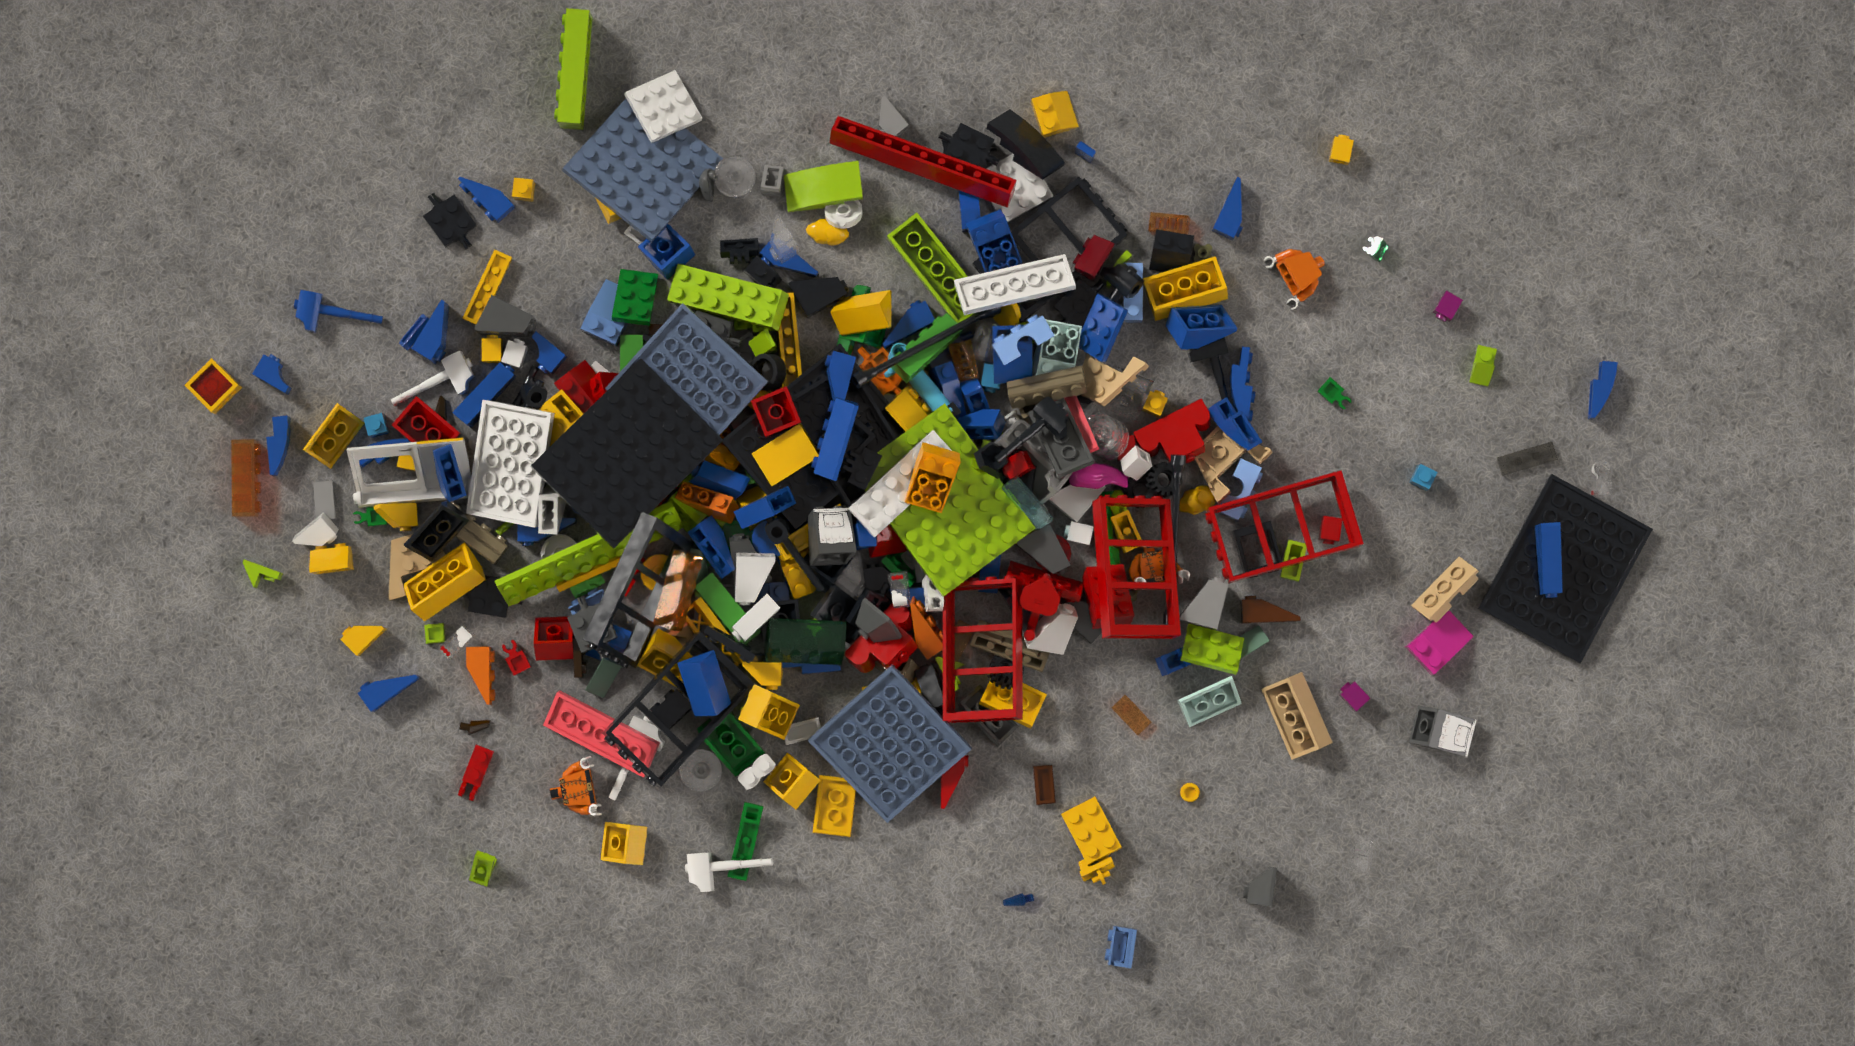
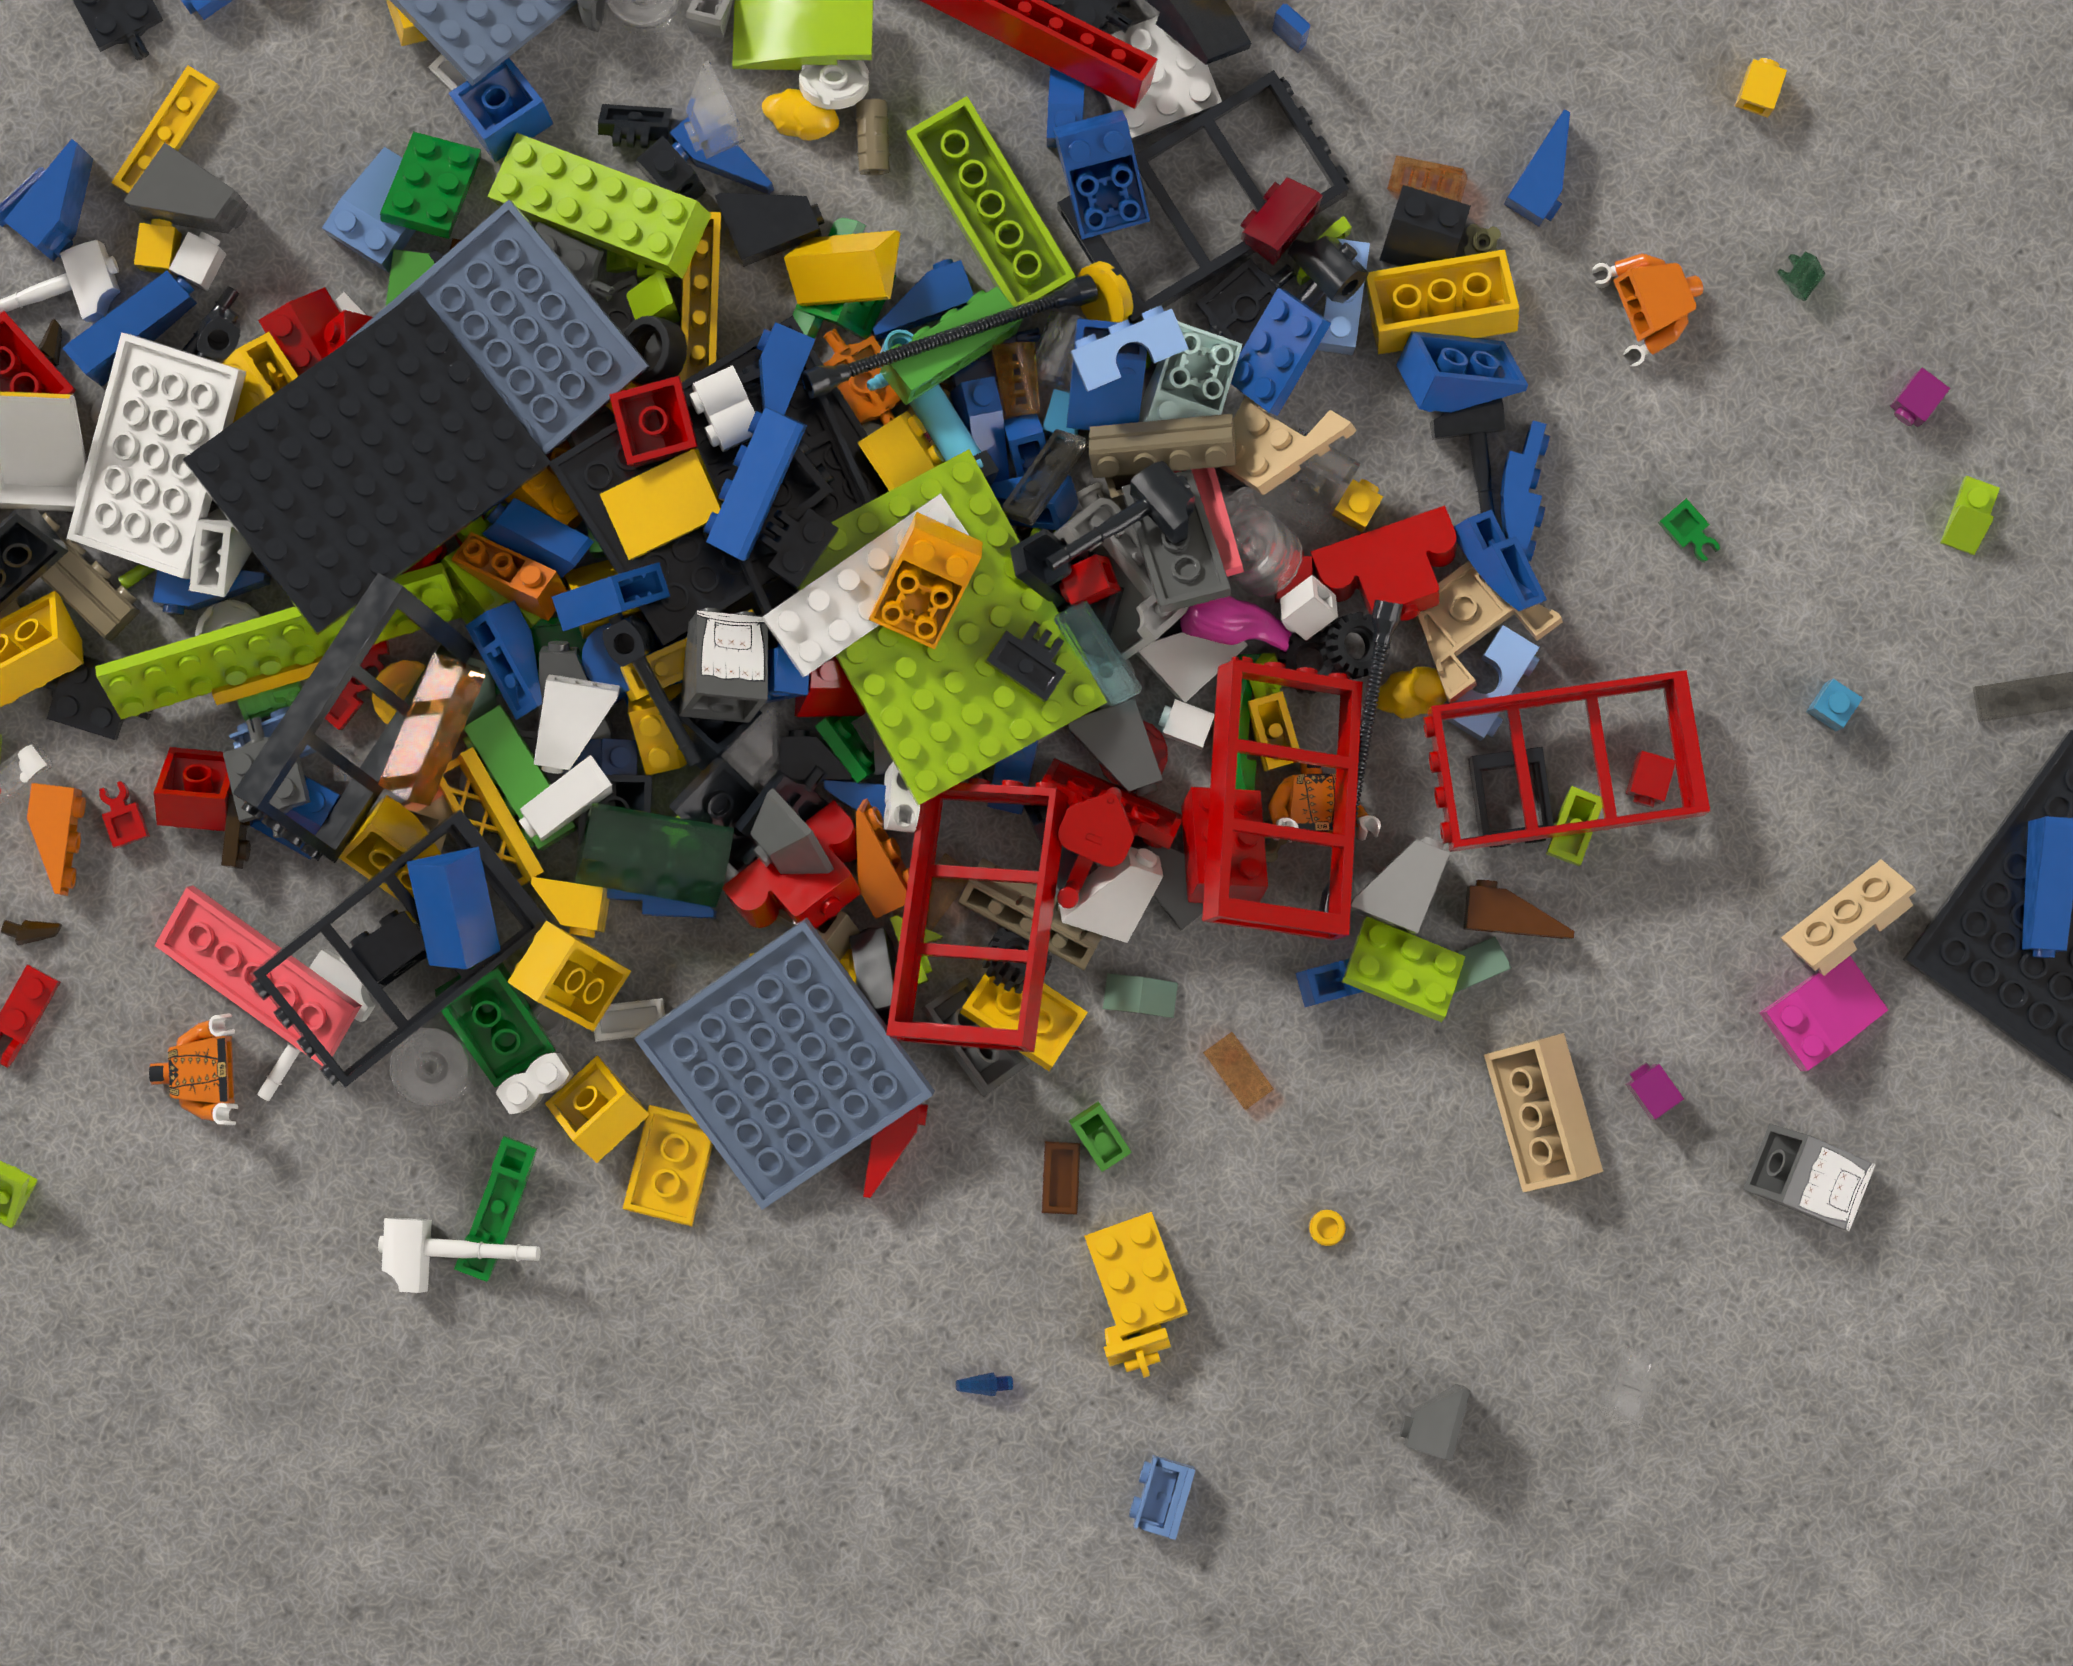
camera: 10 degrees right, 0 degrees up
(448, 473) = (39, 457): blue slope -> none
(549, 356) = (260, 273): blue arch -> none
(603, 677) = (276, 873): sand green slope -> none
(624, 843) = (273, 1183): yellow slope -> none
(717, 635) = (537, 855): black wing -> none
(813, 400) = (725, 407): none -> white brick
(868, 239) = (872, 137): none -> dark tan axle
(900, 589) = (841, 782): clear leg -> none
(986, 412) = (1044, 477): none -> clear smoke tile
(991, 512) = (1028, 661): none -> black hinge
(1014, 284) = (1128, 249): white plate -> none
(1062, 759) = (1100, 1136): none -> bright green slope
(1073, 681) = (1140, 995): none -> sand green slope
(1209, 701) = (1386, 1065): light aqua slope -> none

